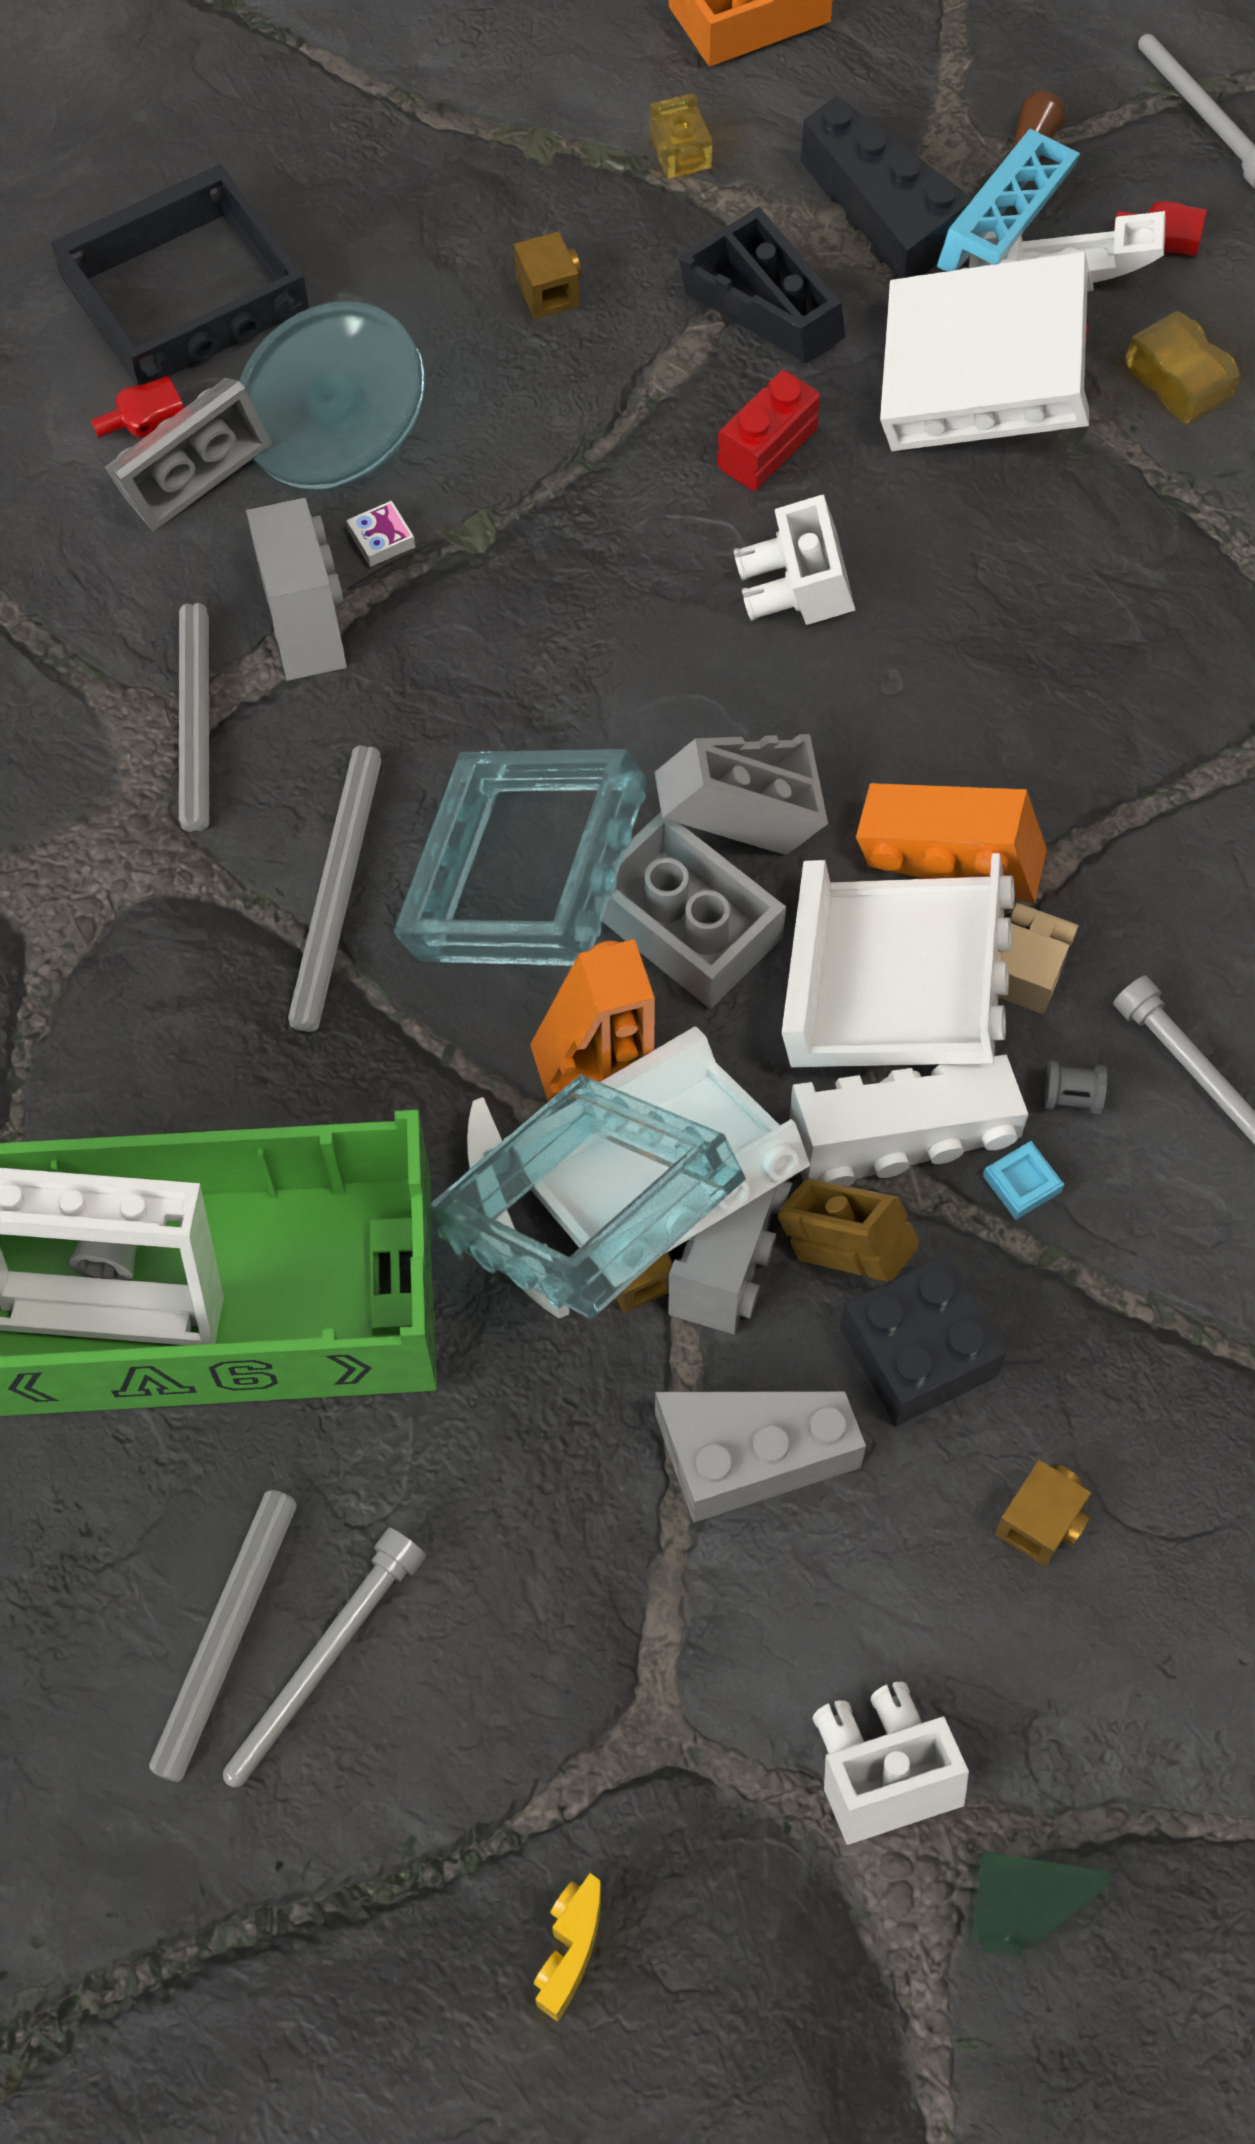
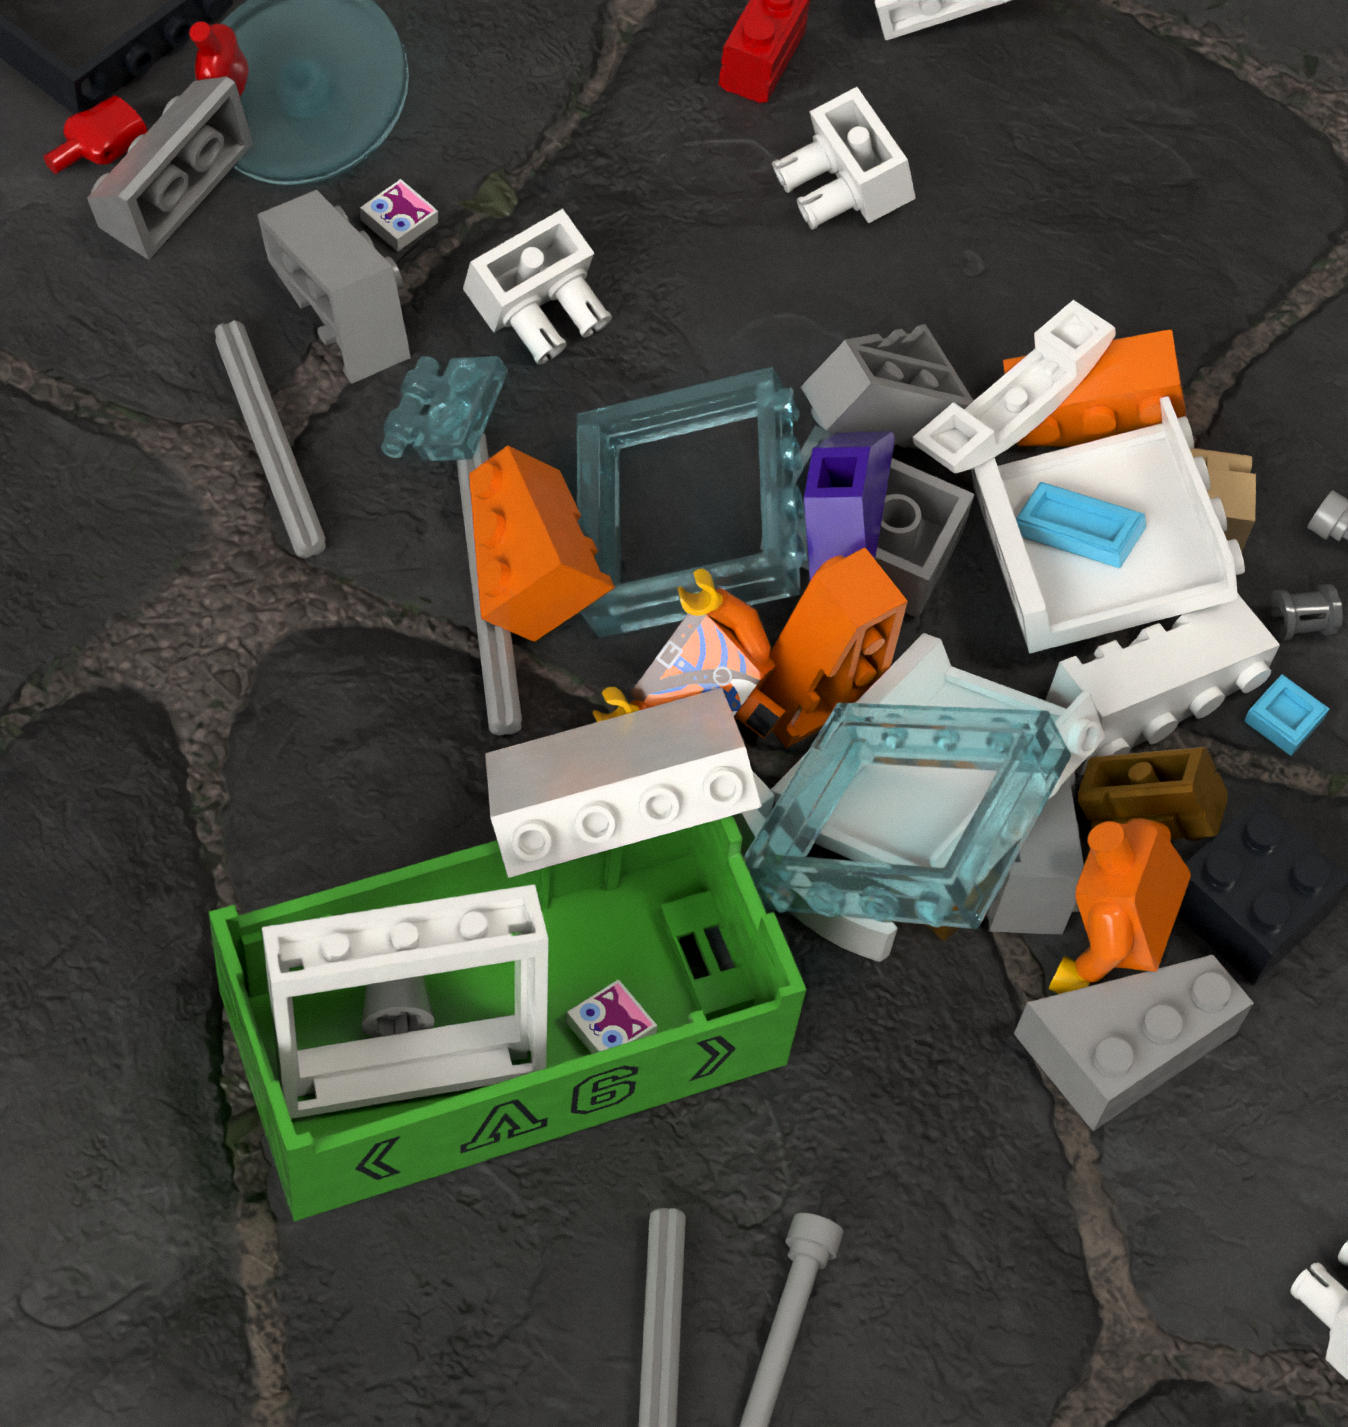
camera: 25 degrees left, 5 degrees down
(256, 363) = (218, 54): none -> red piece
(288, 1312) = (610, 1019): none -> tile
(345, 1101) = (618, 782): none -> white panel
(364, 721) = (457, 412): none -> clear light blue plate
(371, 864) = (529, 546): none -> orange wedge
(469, 611) = (529, 271): none -> white brick
(479, 1018) = (712, 648): none -> torso
(654, 884) = (846, 494): none -> dark purple slope
(775, 1319) = (1125, 901): none -> orange torso
(865, 826) = (1024, 396): none -> white slope
(881, 956) = (1080, 524): none -> medium azure tile

